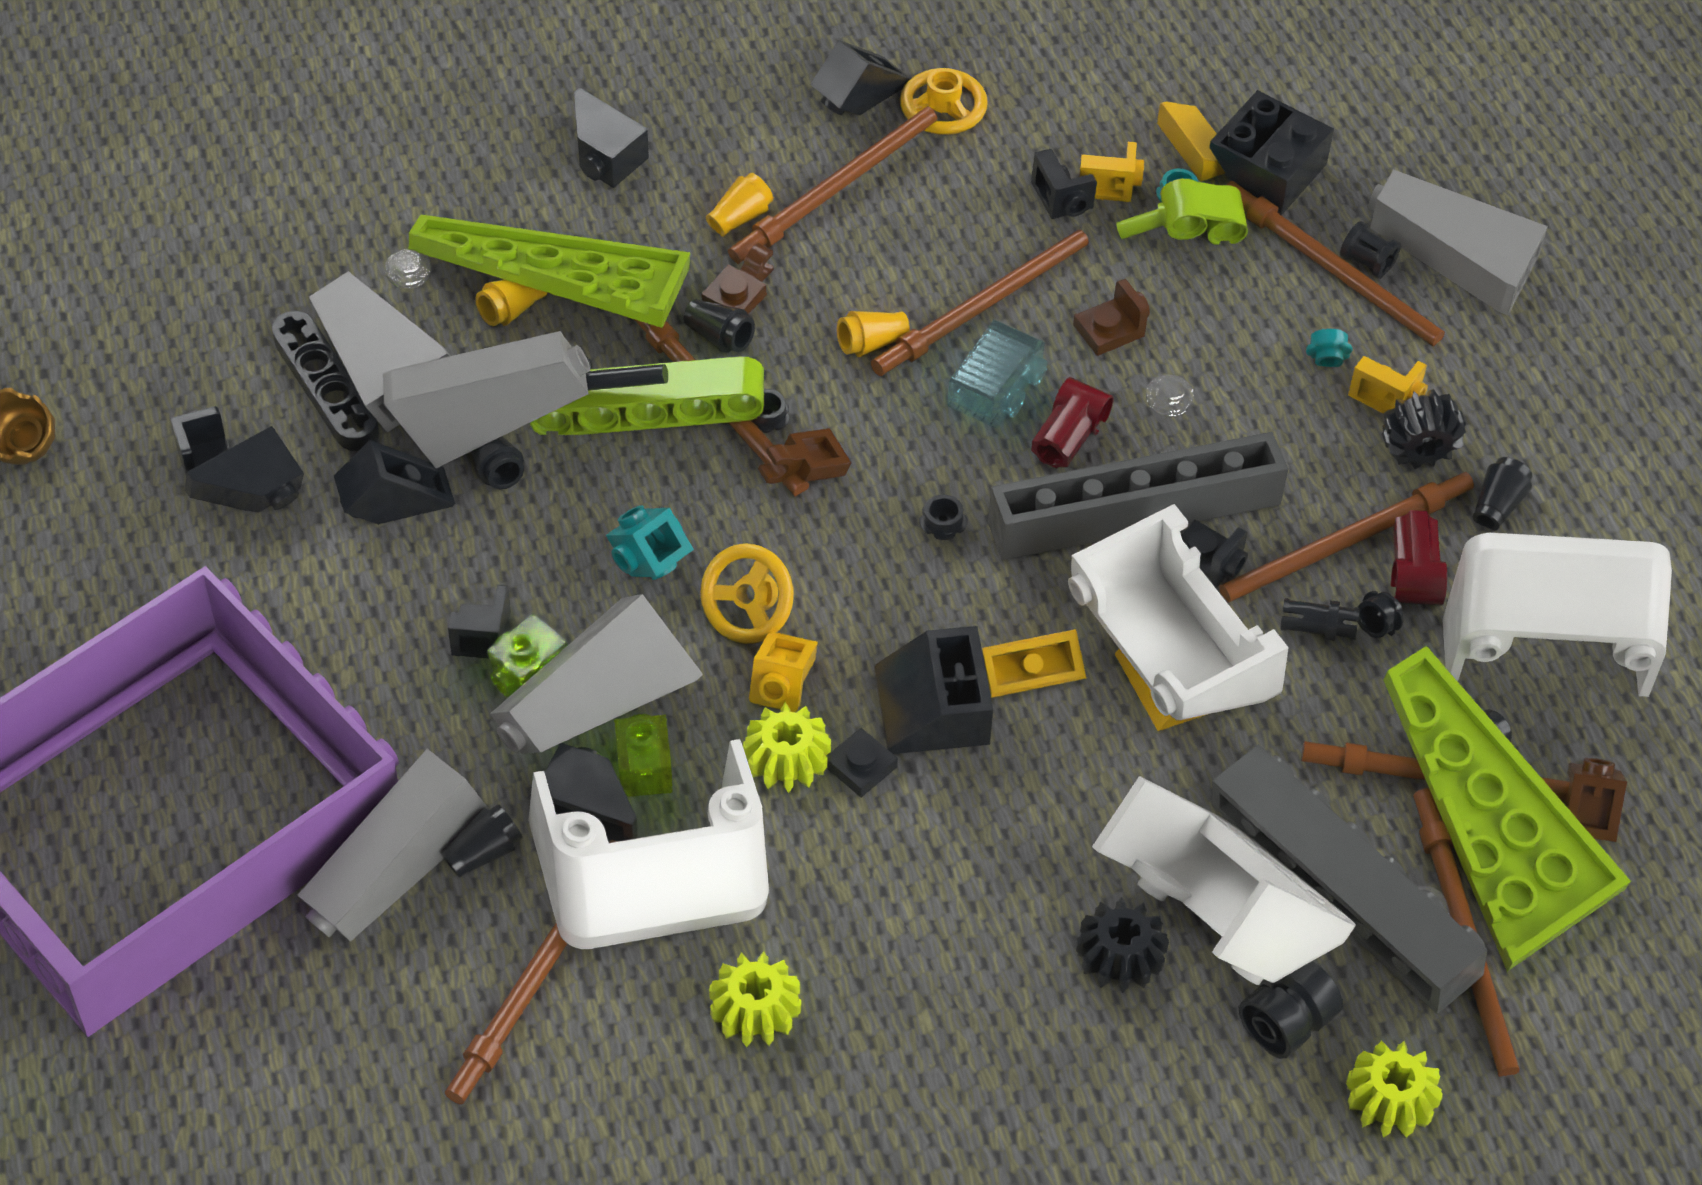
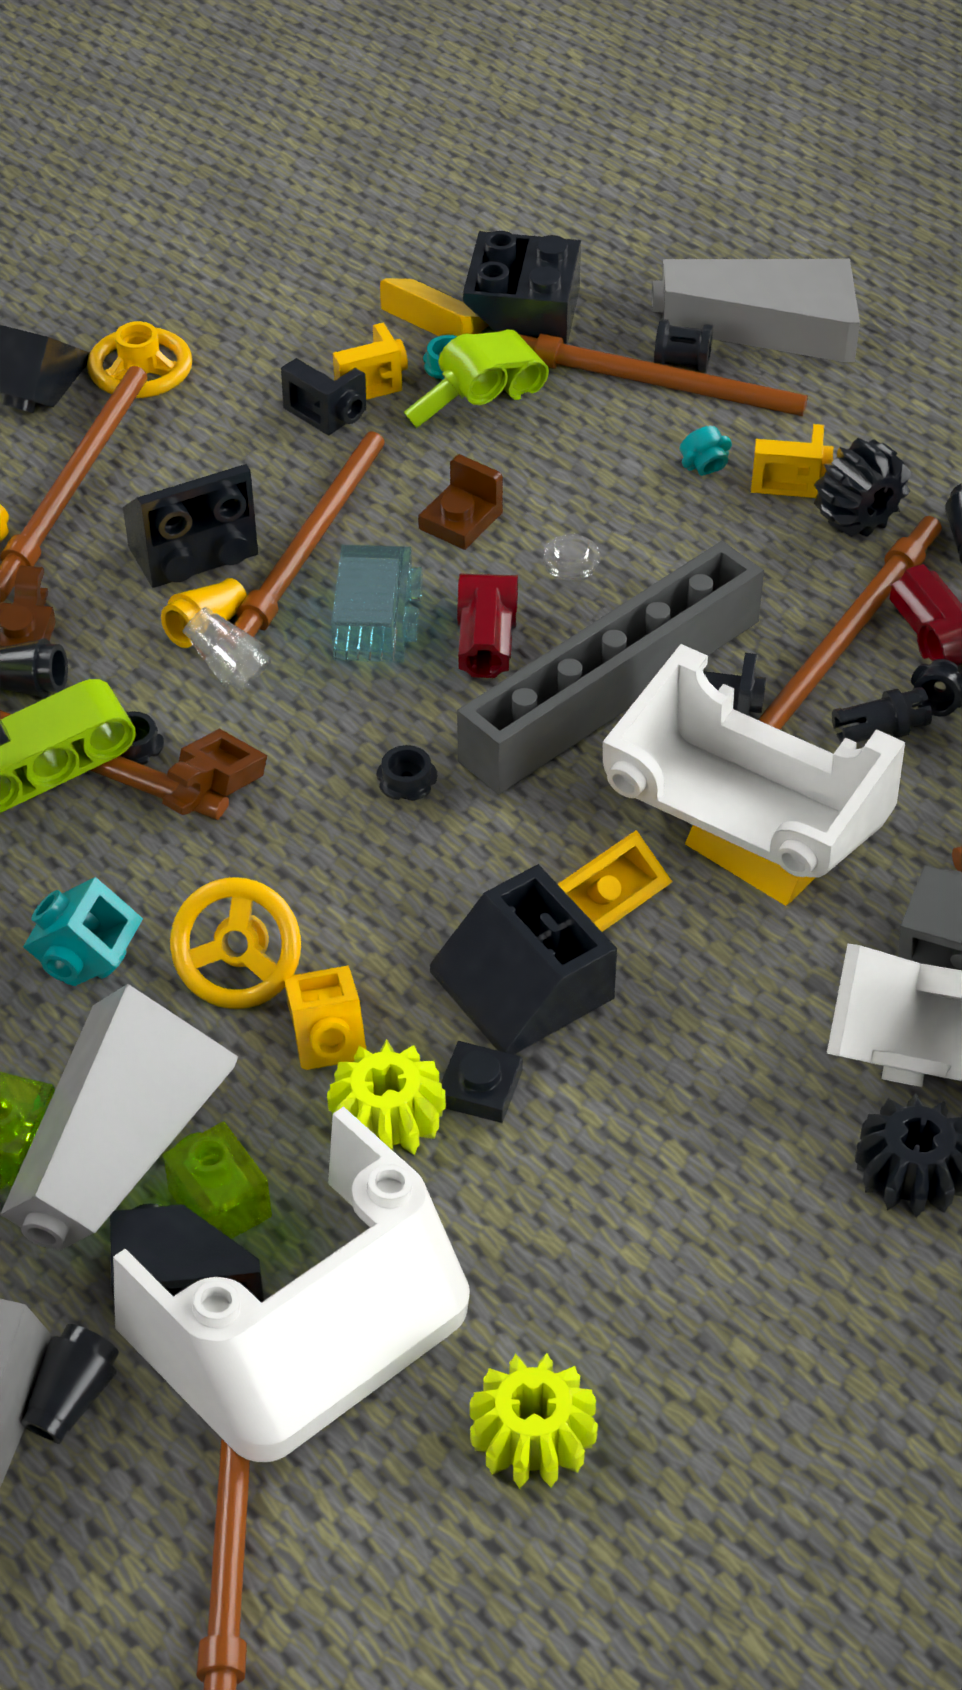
camera: 25 degrees left, 5 degrees down
(867, 369) = (228, 650): none -> clear cone
(897, 262) = (193, 526): none -> black slope

